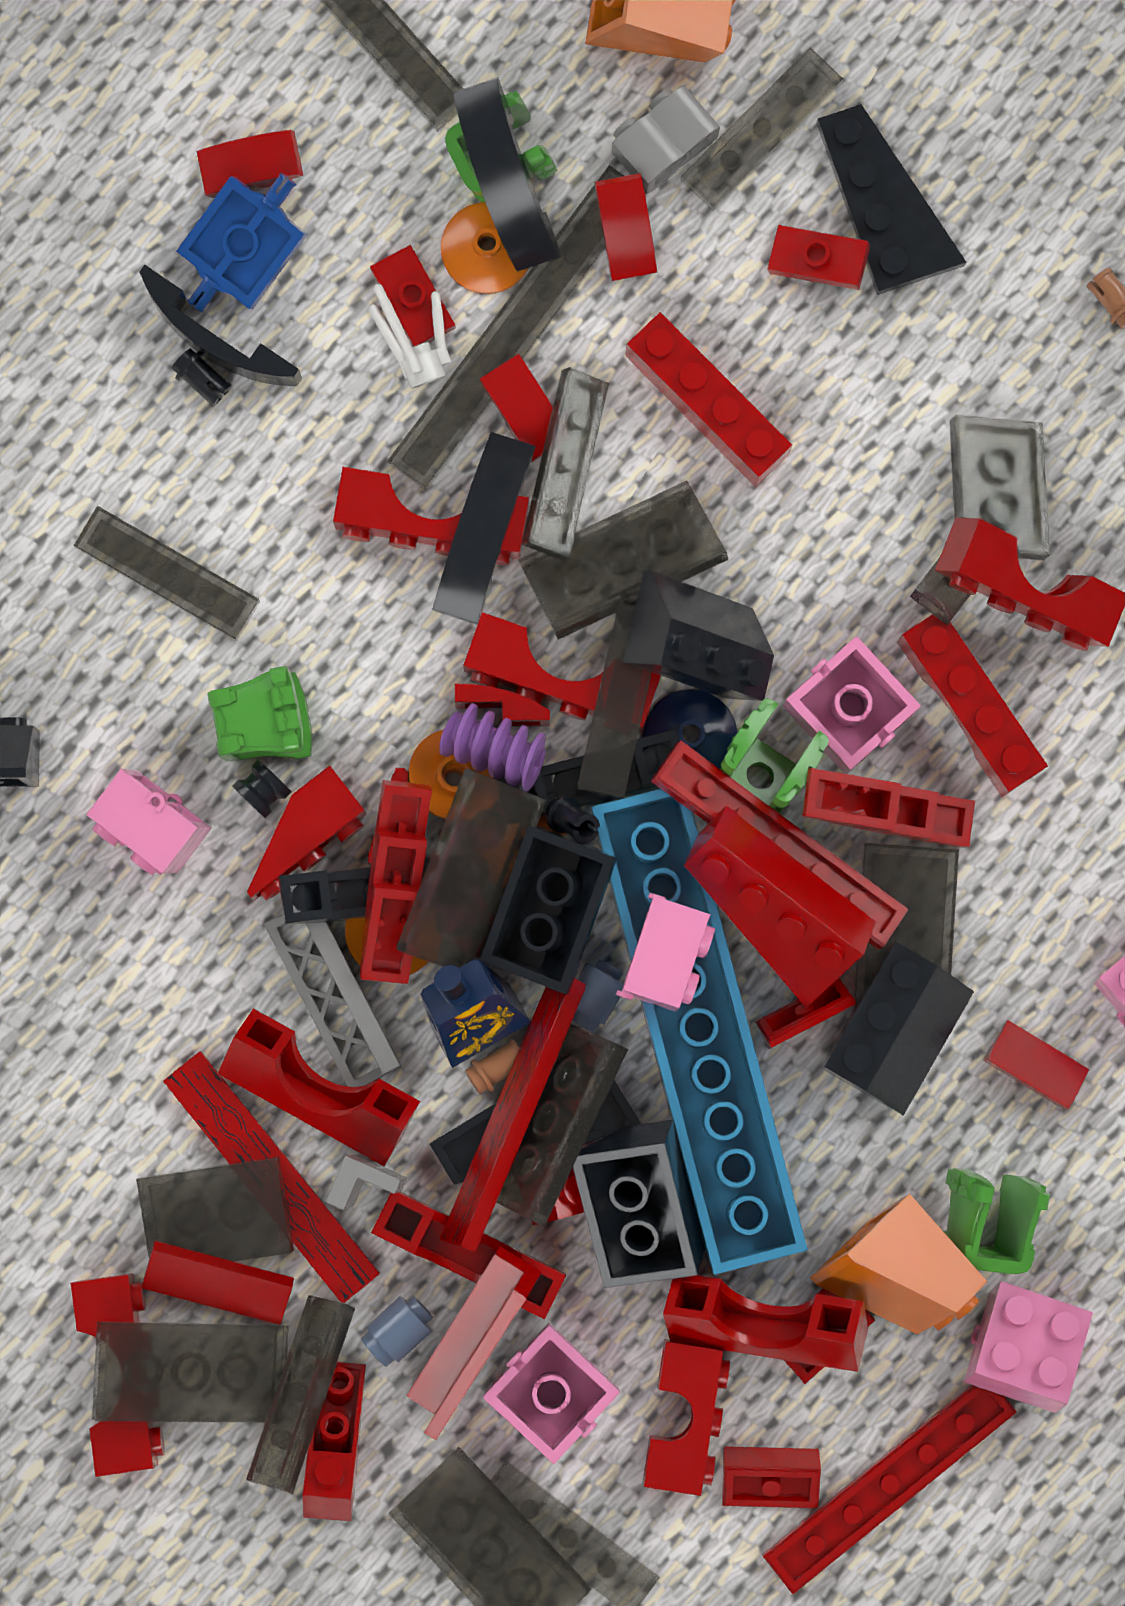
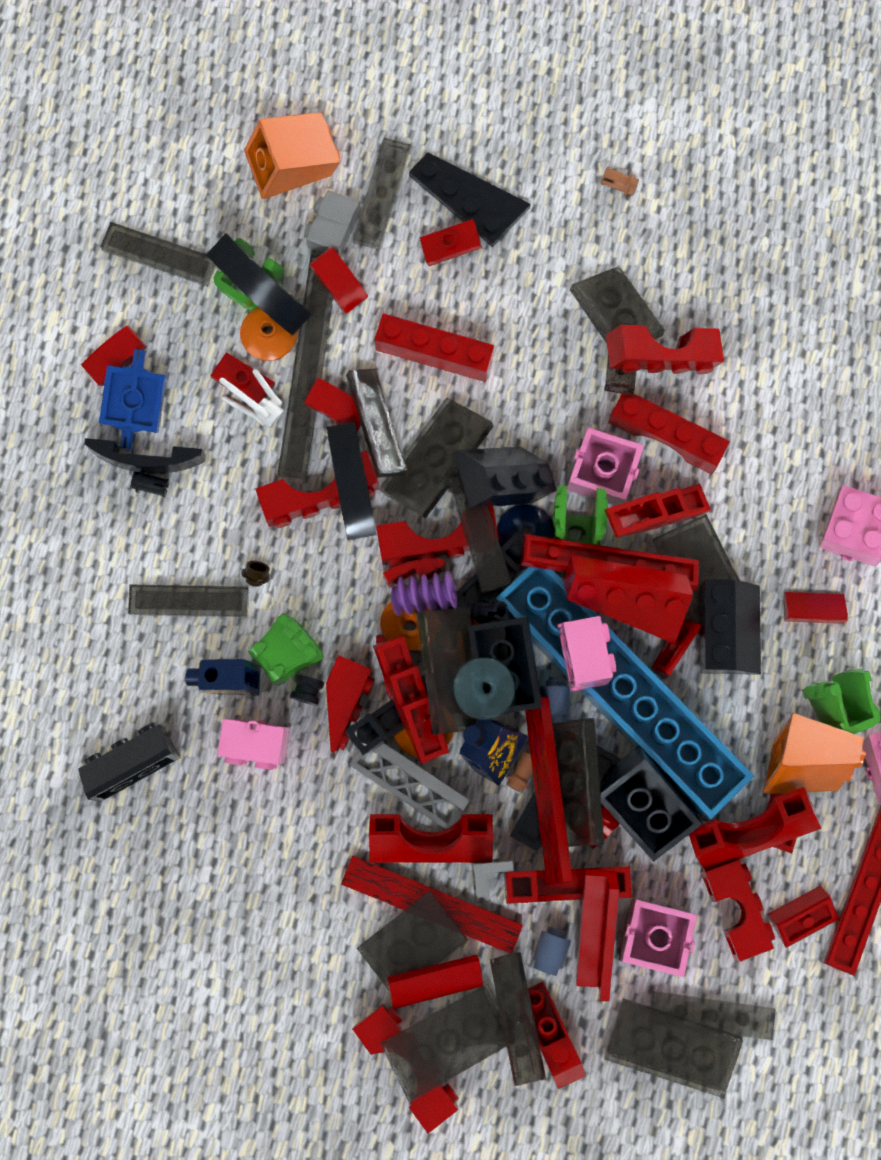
camera: 25 degrees left, 5 degrees down
(158, 710) = (225, 677): none -> dark blue torso
(280, 586) = (256, 573): none -> dark brown plate
(479, 928) = (469, 688): none -> clear light blue dish

